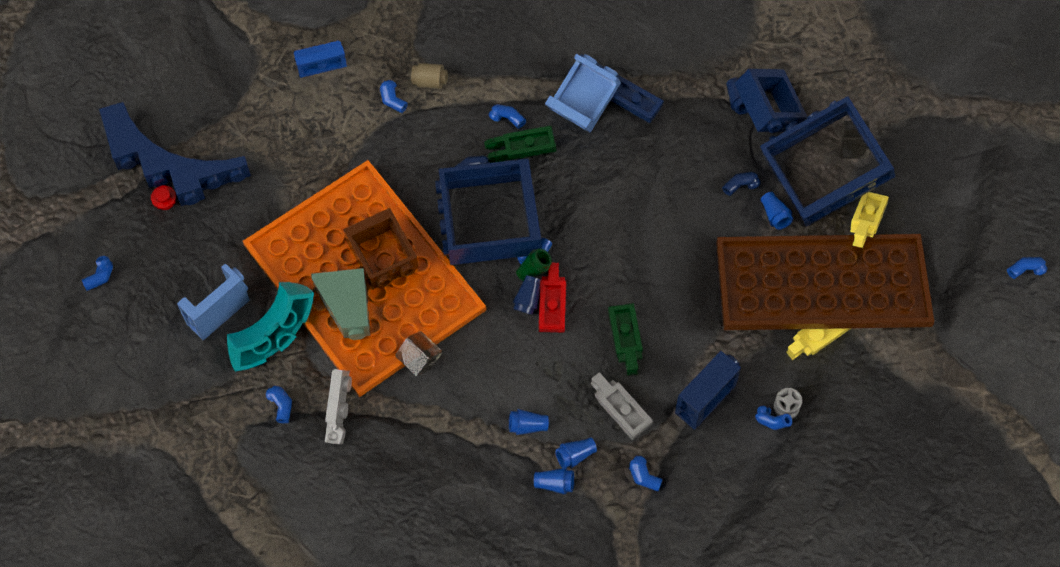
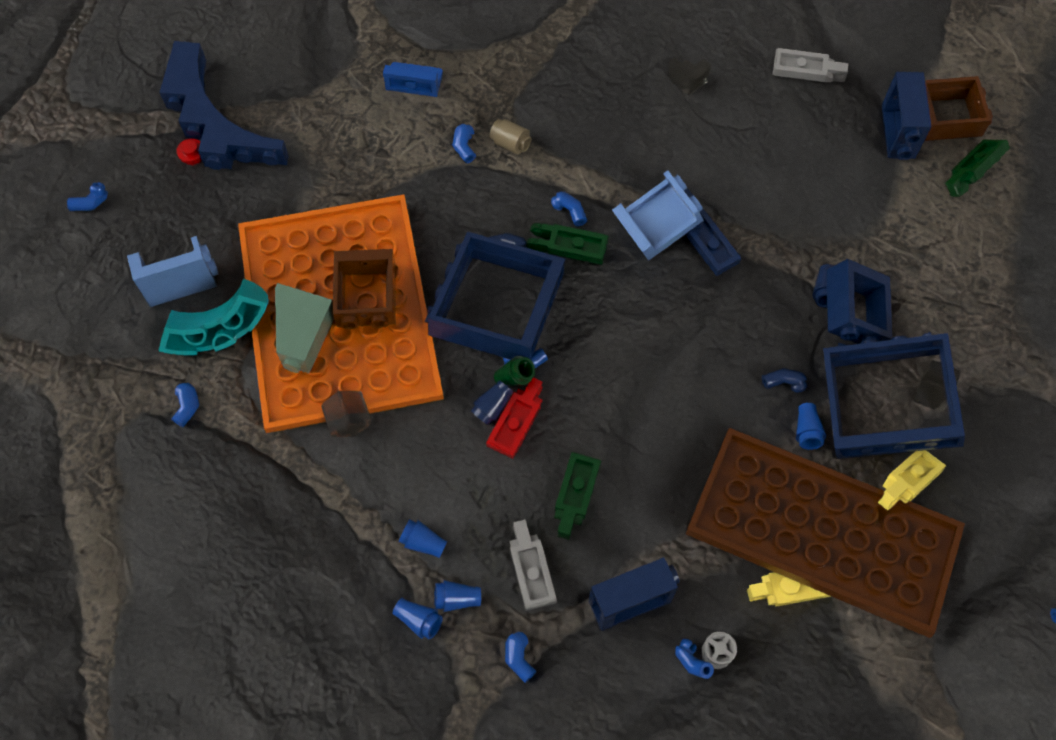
camera: 25 degrees right, 0 degrees up
(337, 407) = (235, 431): light grey hinge -> none

